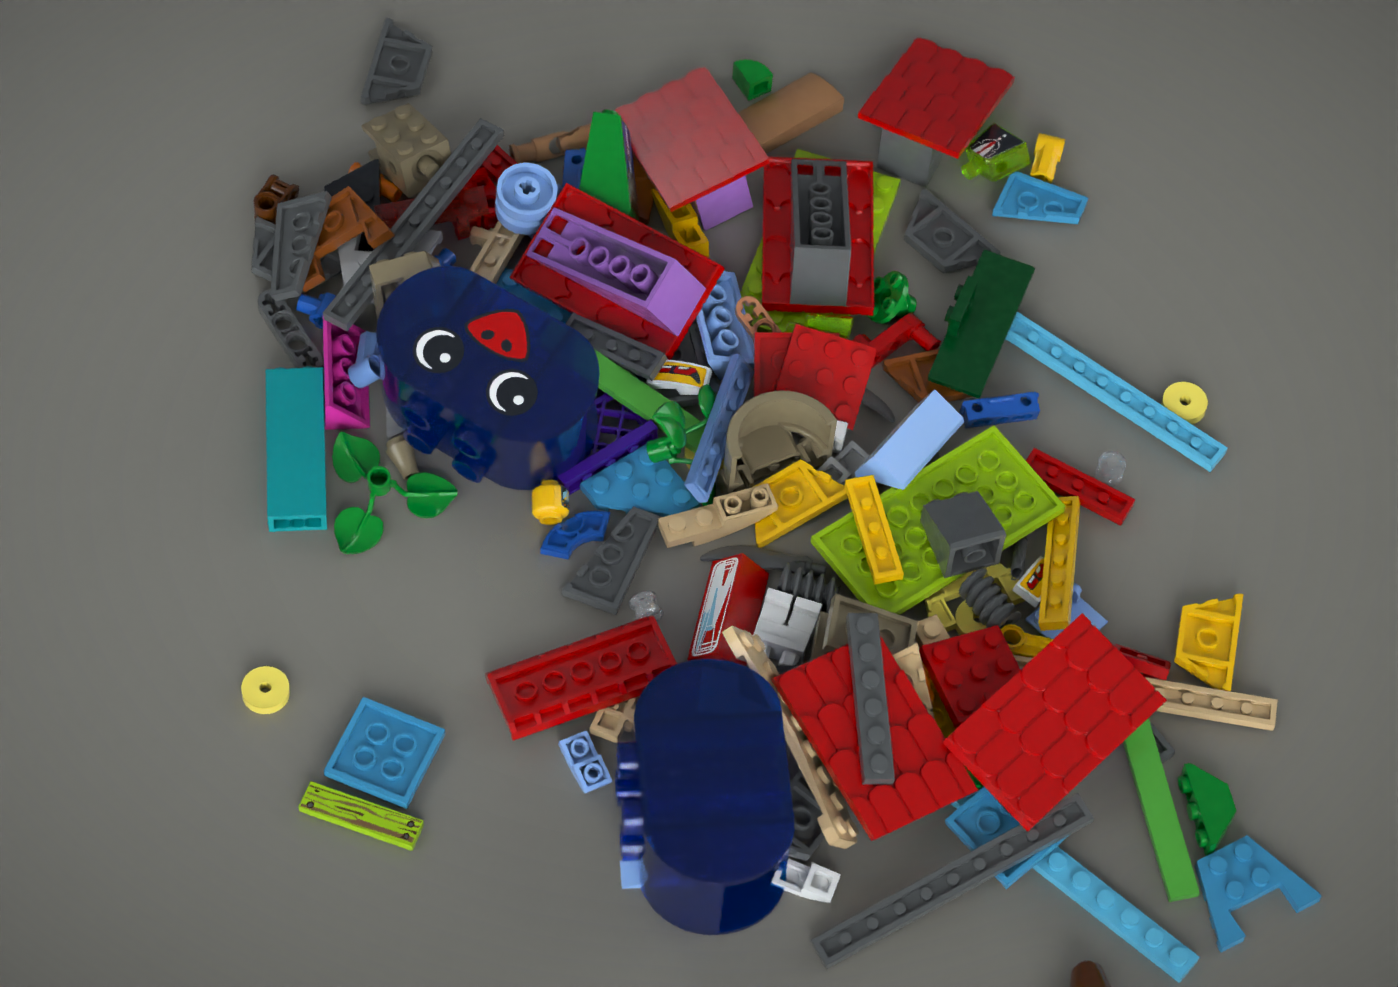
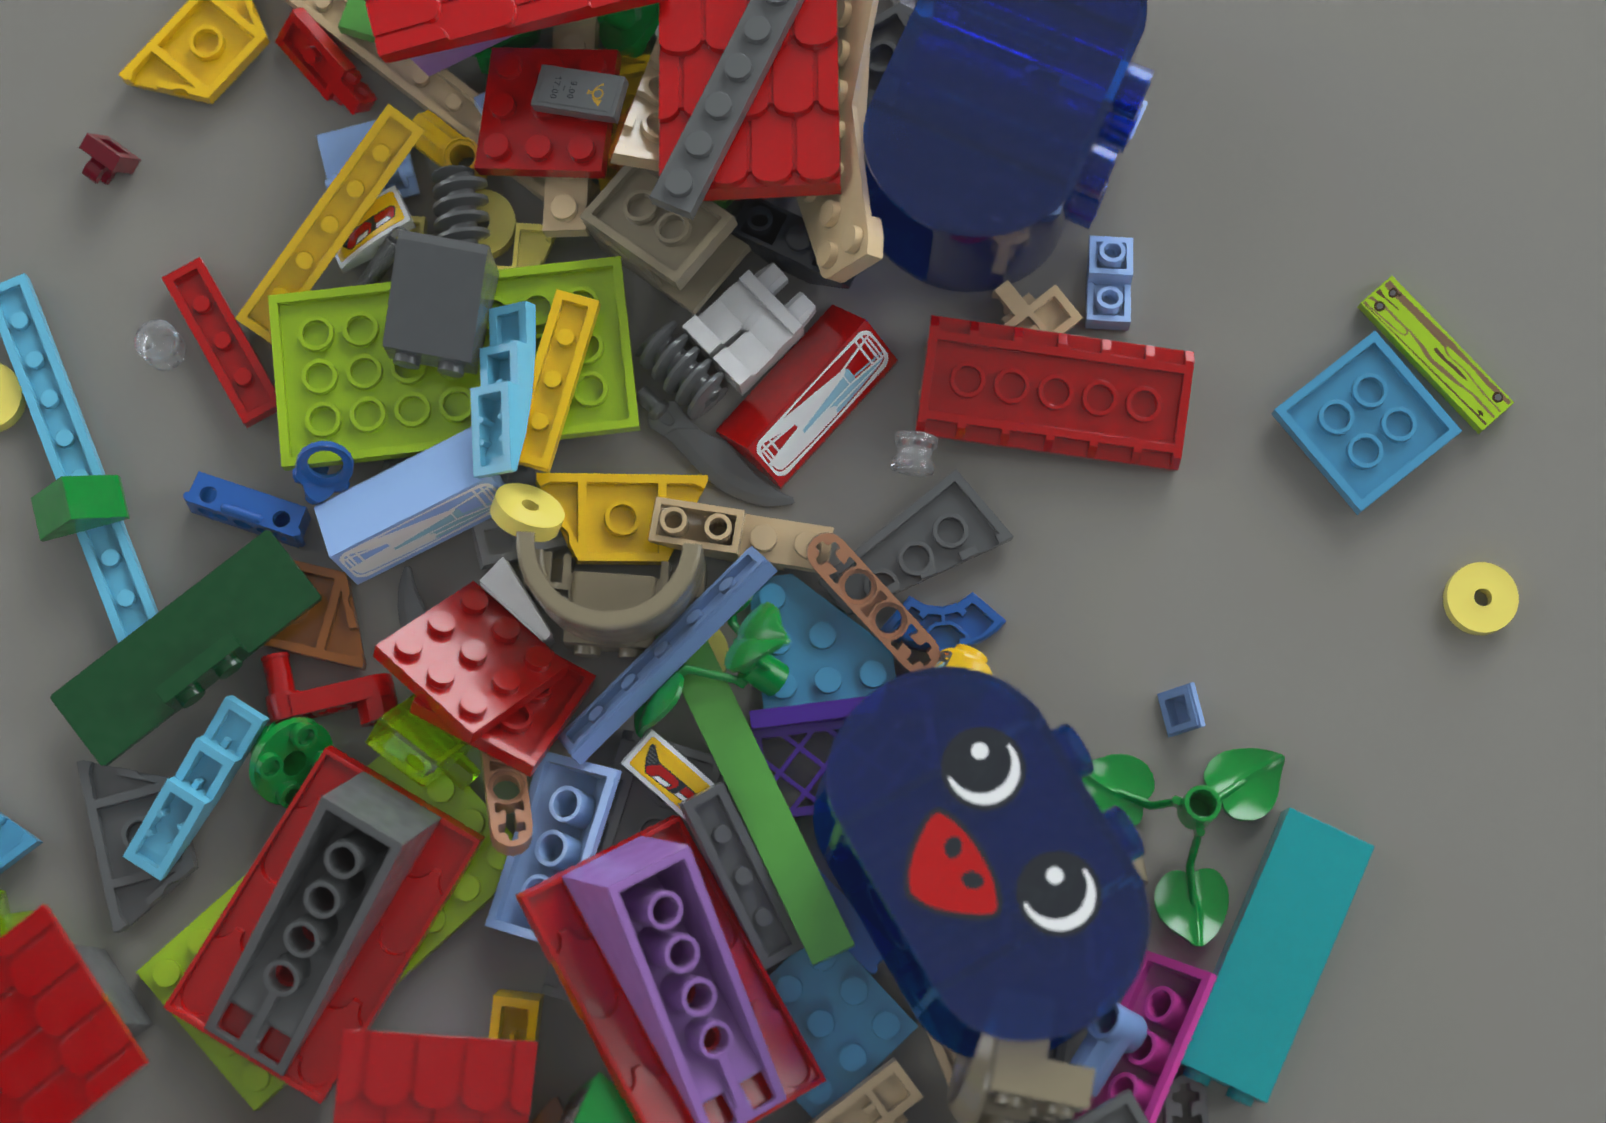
camera: 145 degrees left, 20 degrees up
(411, 548) = (1181, 709): none -> medium blue slope
(655, 516) = (874, 601): none -> nougat beam
(838, 445) = (527, 510): none -> light yellow piece
(892, 498) = (505, 395): none -> medium azure slope
(928, 263) = (195, 788): none -> medium azure slope
(961, 677) = (579, 93): none -> dark grey tile
(969, 431) = (315, 481): none -> blue piece
(1088, 362) = (78, 505): none -> green slope
(1215, 550) = (106, 158): none -> dark red tile

